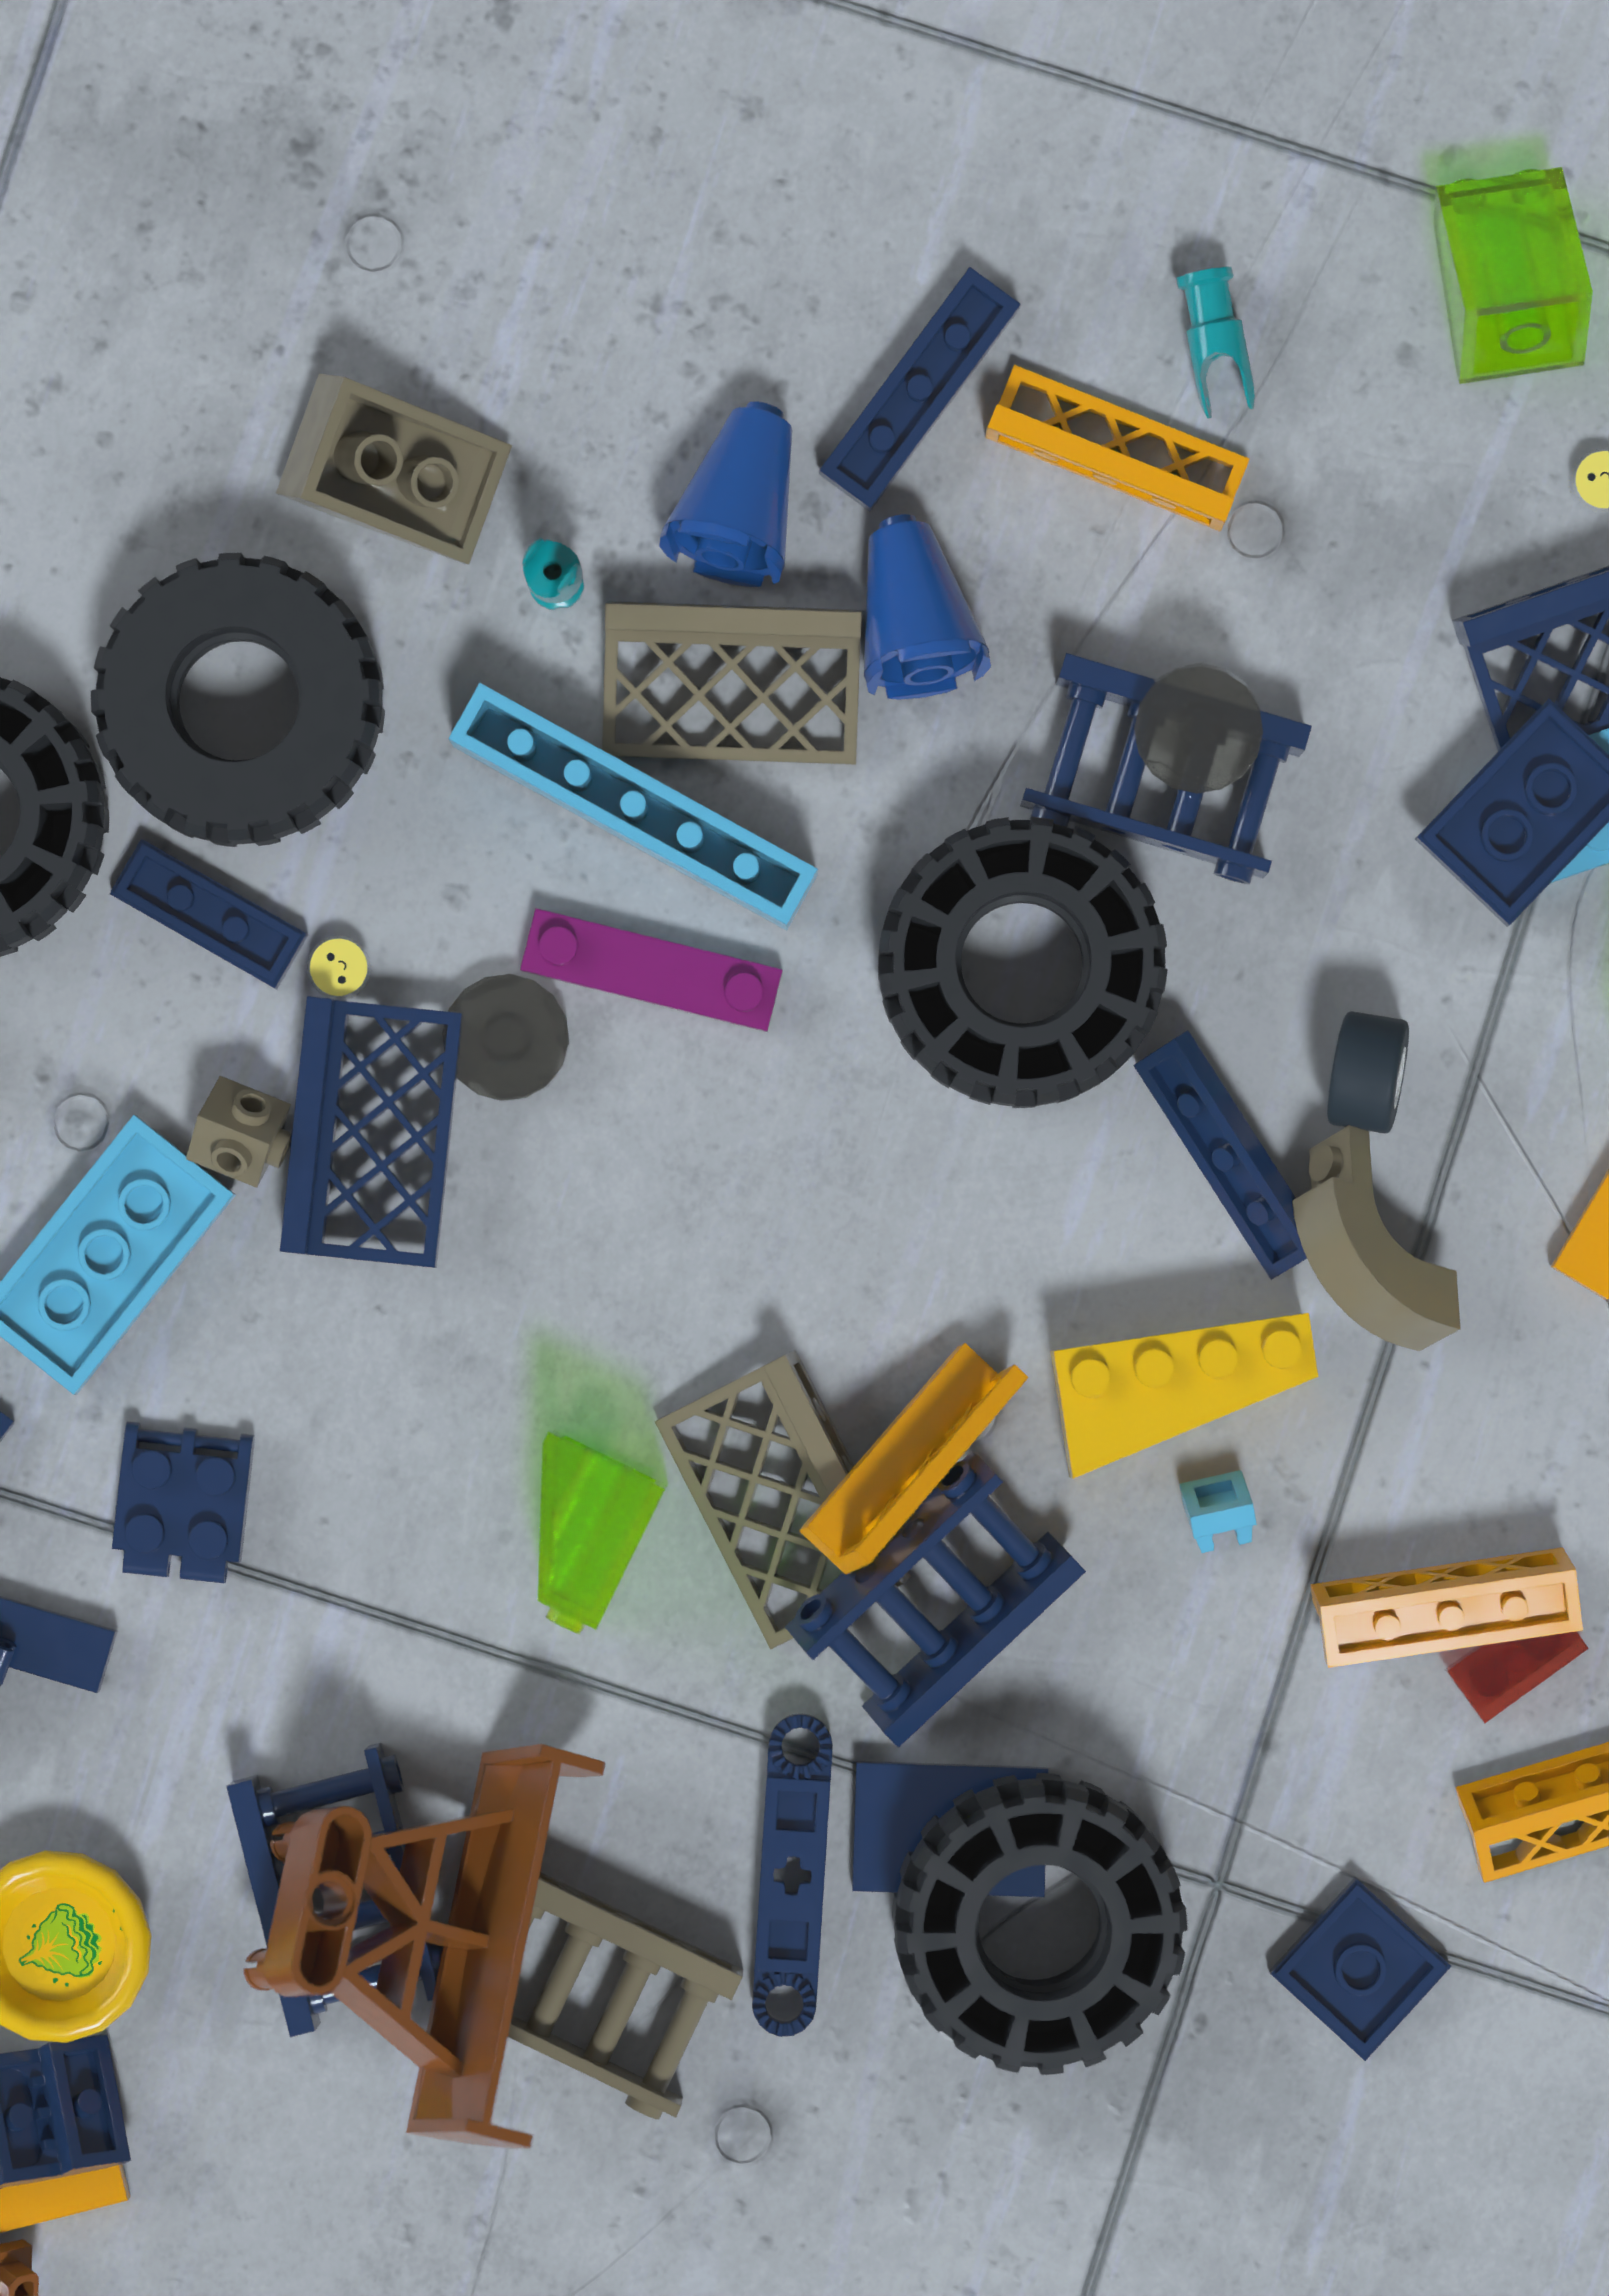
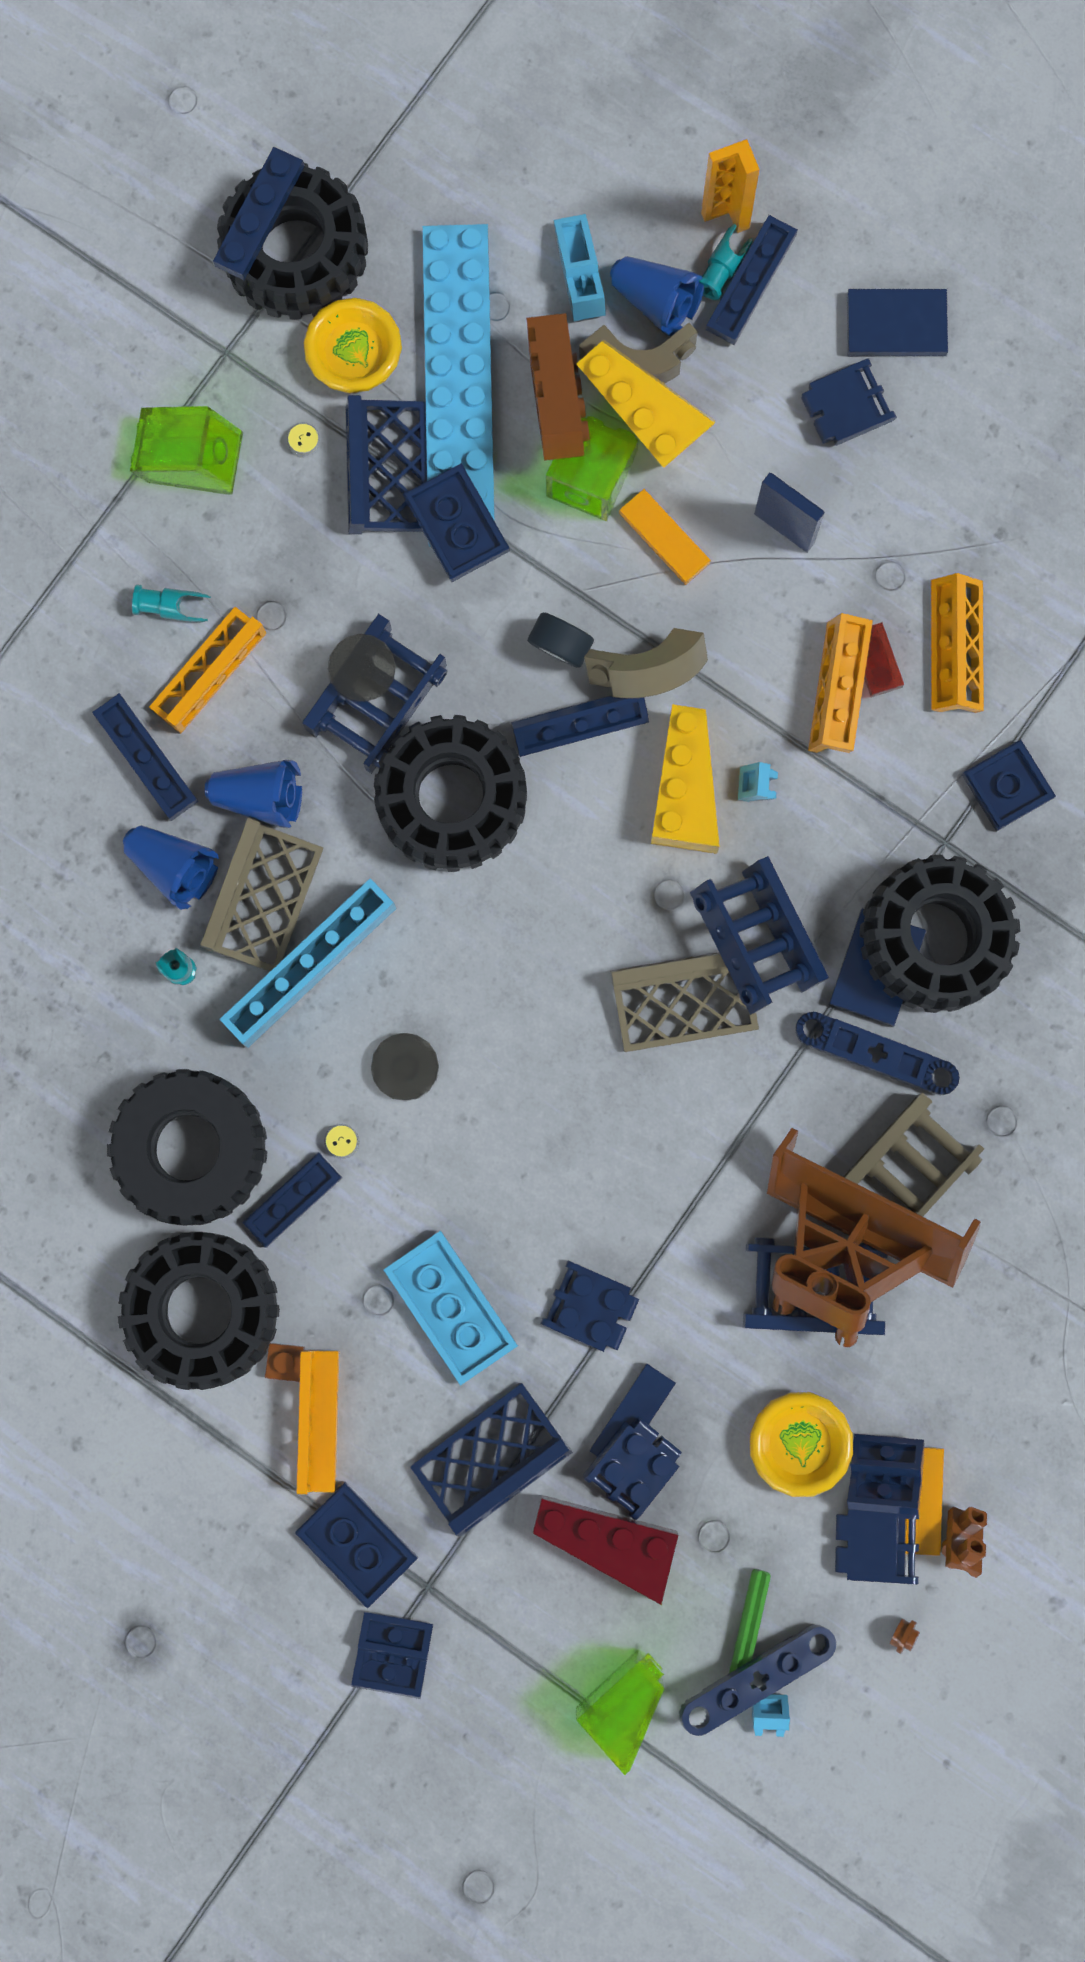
camera: 70 degrees left, 5 degrees down
(240, 1132) = (410, 1216): dark tan brick -> none
(316, 1124) = (420, 1177): dark blue fence -> none
(393, 468) = (94, 1033): dark tan slope -> none
(589, 1528) = (670, 1098): clear neon green slope -> none
(651, 970) = (394, 982): magenta plate -> none
(910, 1458) = (685, 925): light orange fence -> none

